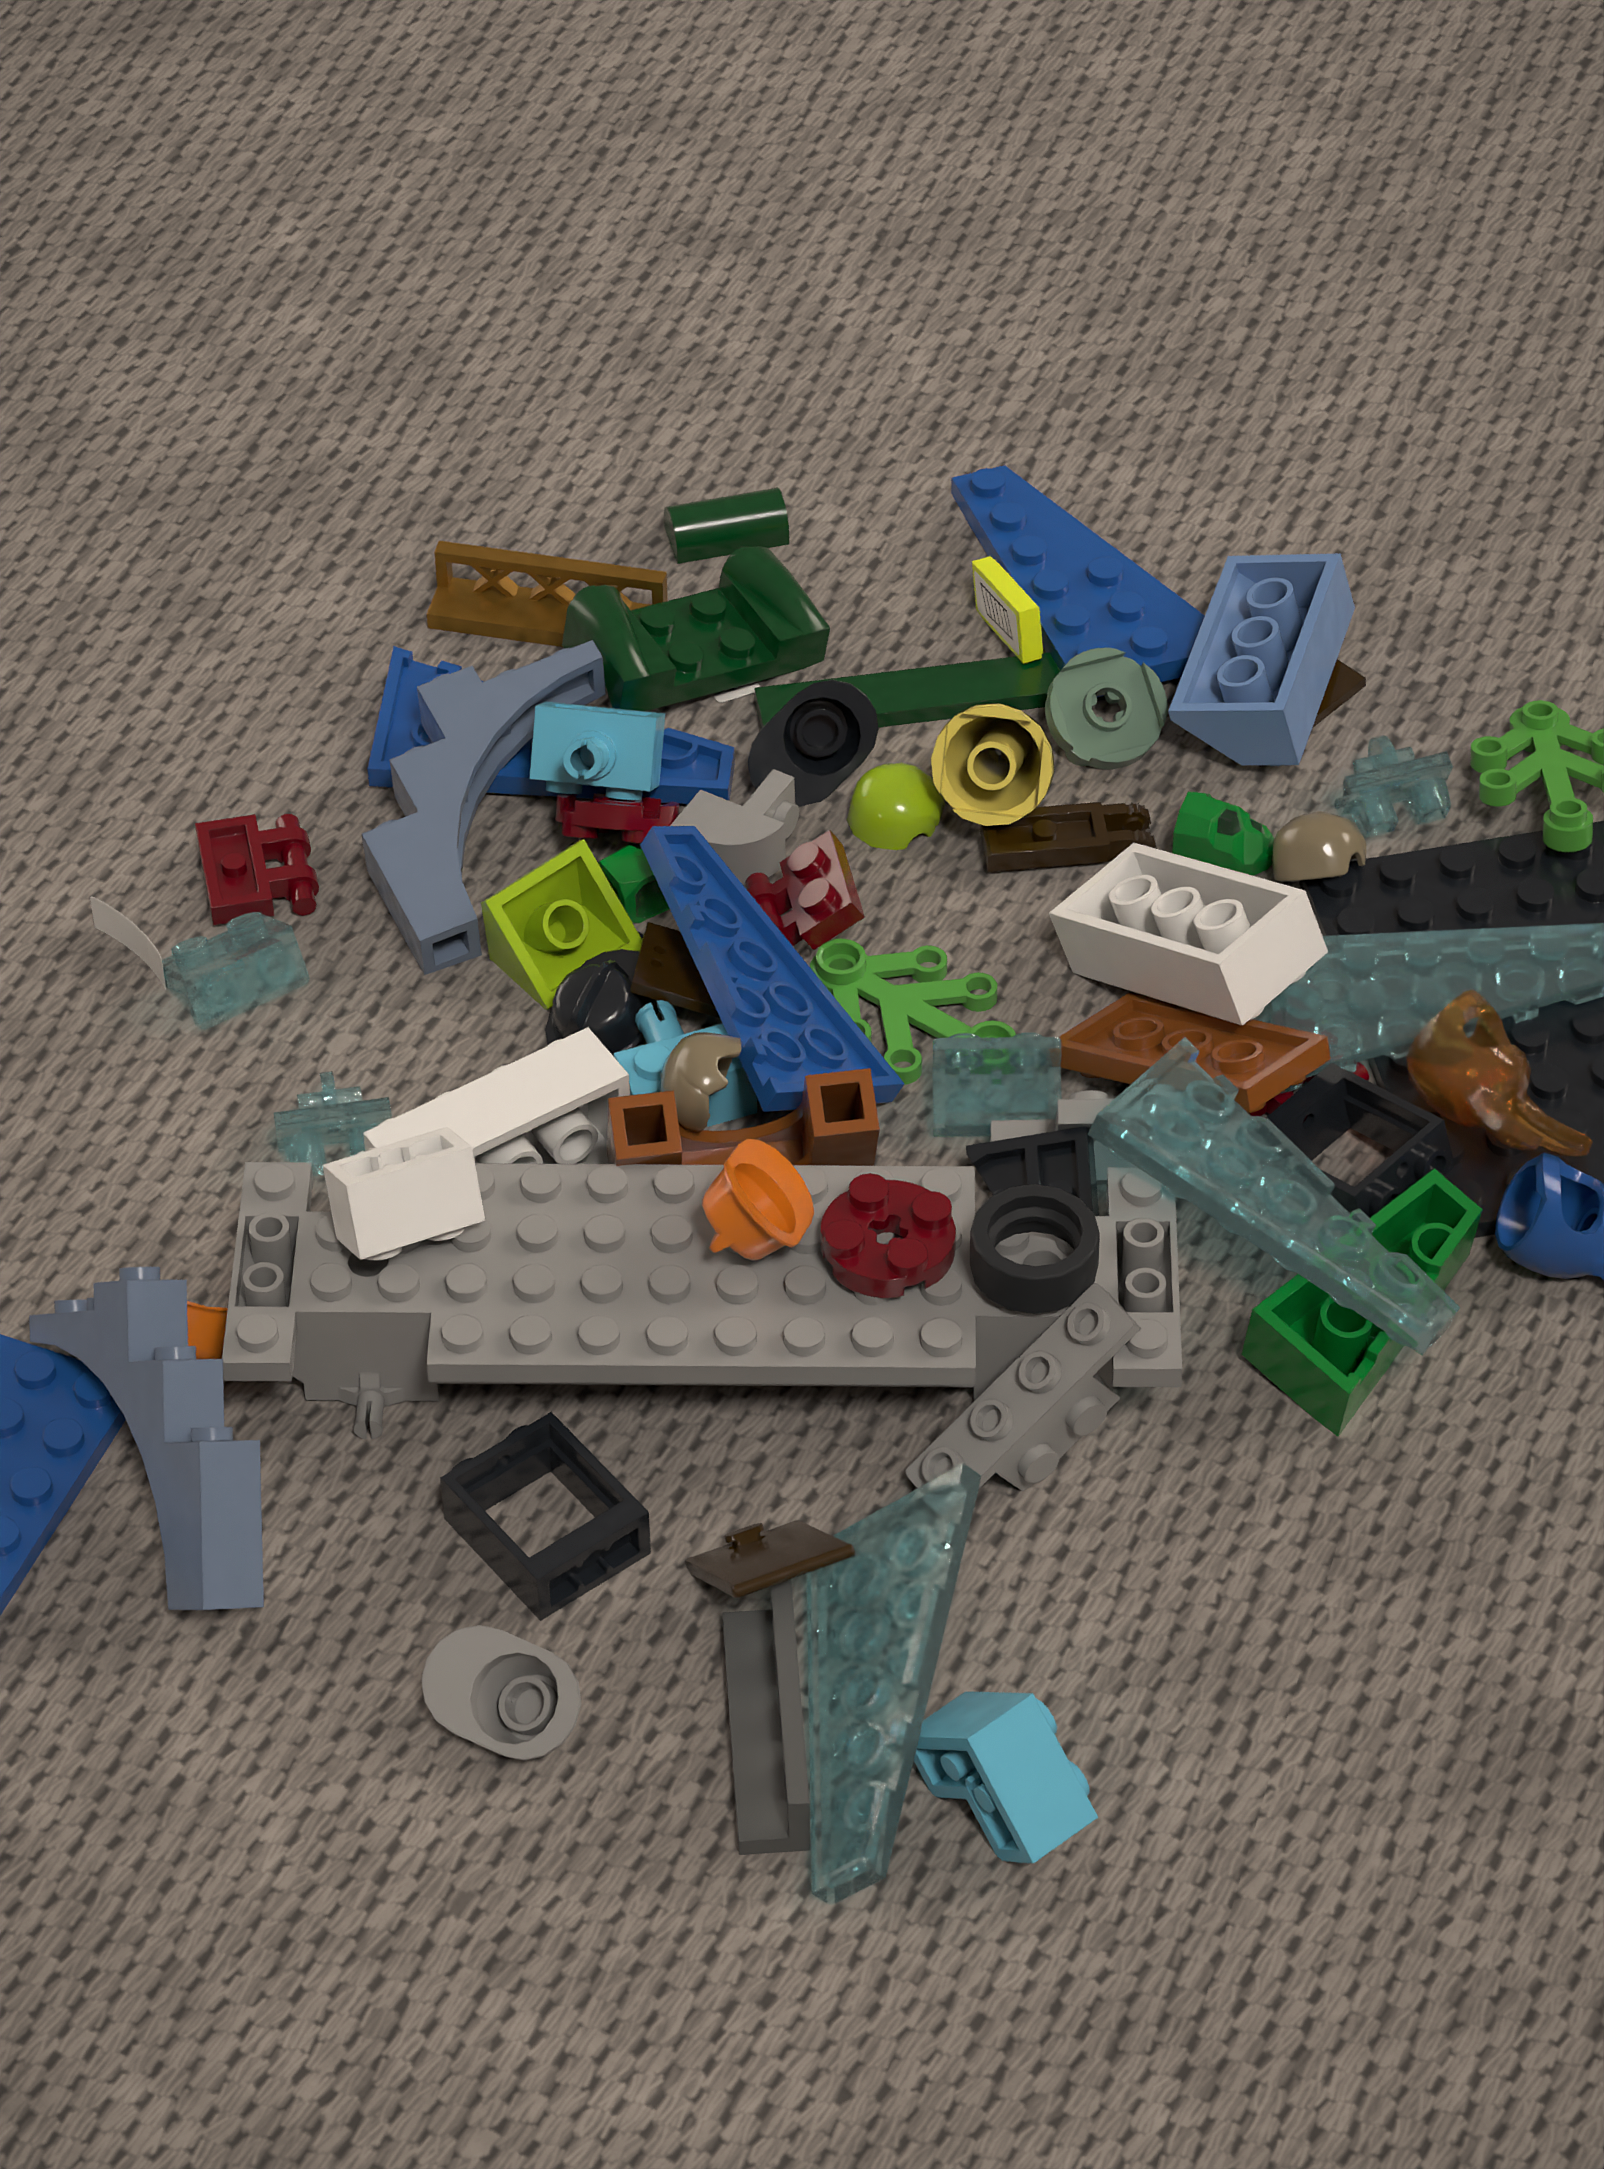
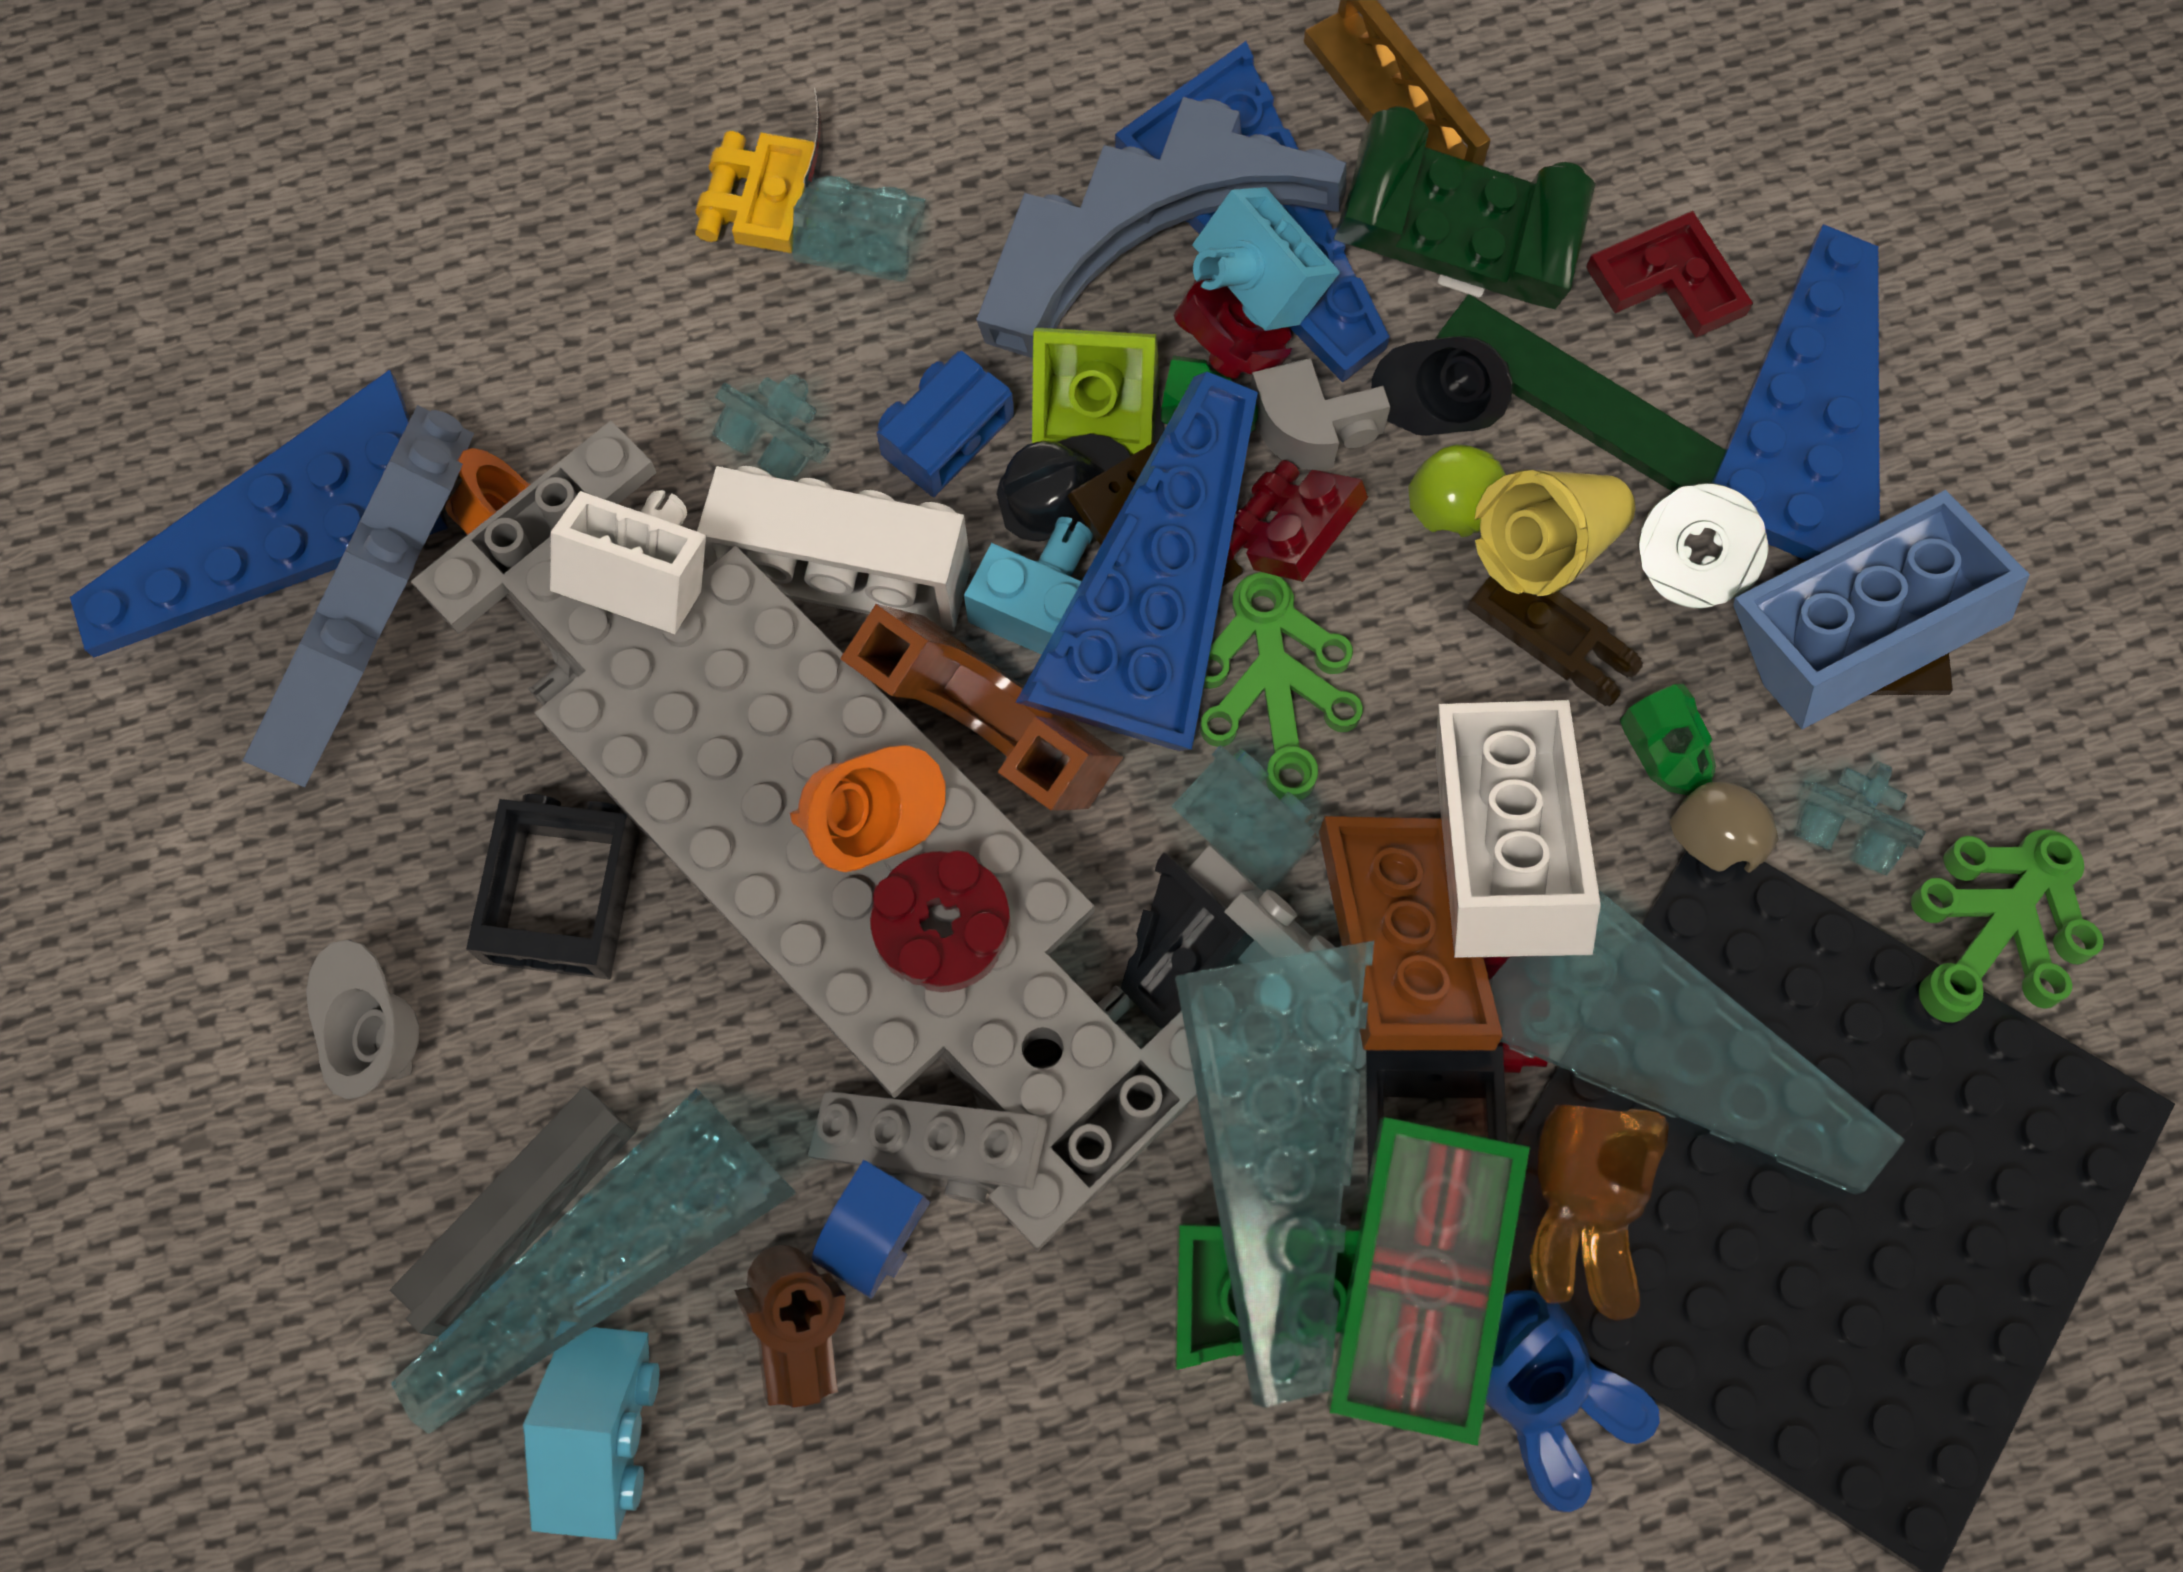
camera: 45 degrees right, 25 degrees up
(136, 992) = (771, 190): none -> yellow plate
(236, 870) = (947, 141): dark red plate -> none
(466, 1024) = (944, 422): none -> blue brick
(695, 1072) = (996, 619): dark tan hair -> none
(726, 524) = (1606, 128): dark green brick -> none
(768, 1557) = (633, 1086): dark brown container -> none
(883, 565) = (1675, 260): none -> dark red plate
(1007, 609) = (1727, 386): neon yellow tile -> none
(1041, 1211) = (1012, 989): black tyre -> none
(1049, 1484) = (869, 1229): none -> blue brick
(1053, 1588) = (794, 1320): none -> reddish brown piece
(1446, 1179) = (1428, 1280): none -> clear brick

